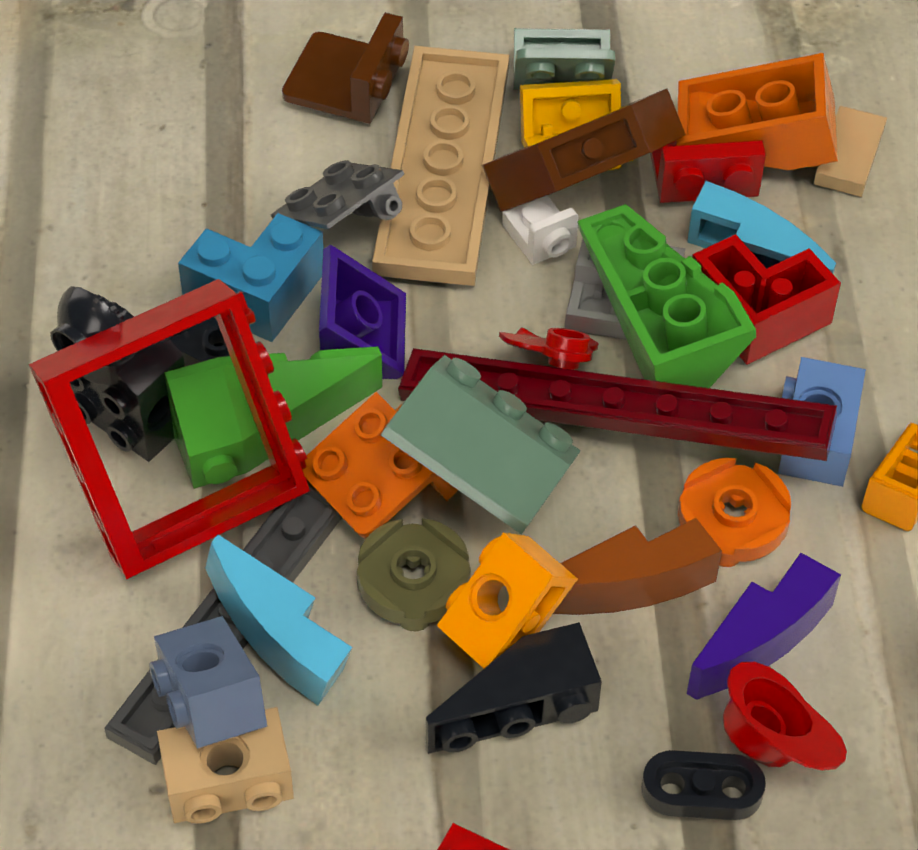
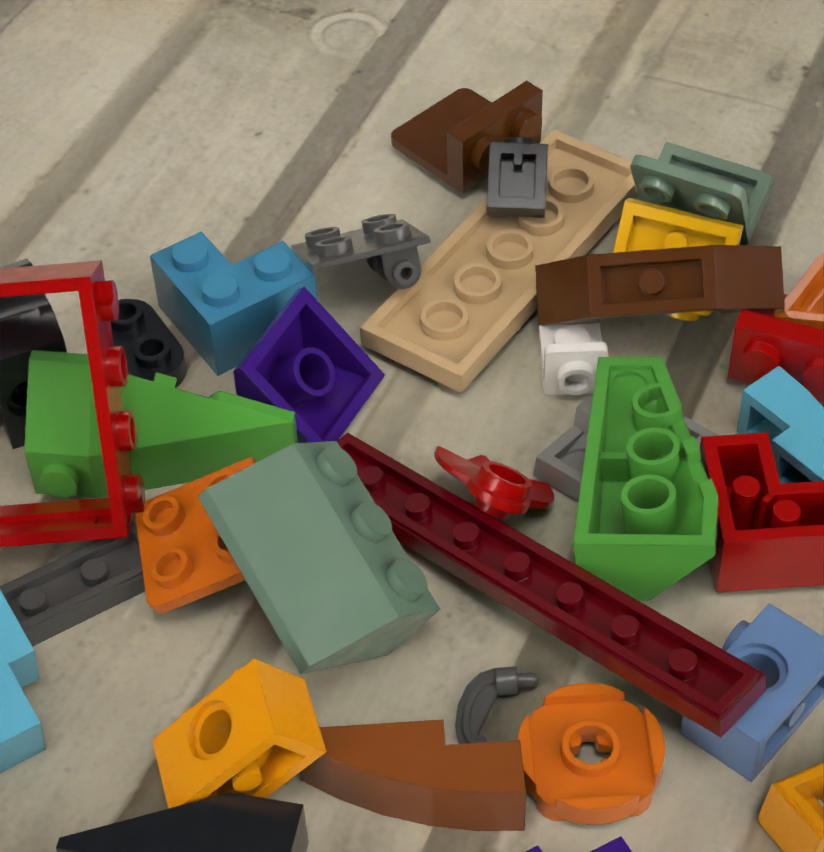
camera: 30 degrees right, 5 degrees down
(406, 600) = (158, 642): olive plate -> none
(424, 97) = (517, 178): none -> black bracket
(631, 501) = (480, 697): none -> dark grey piece

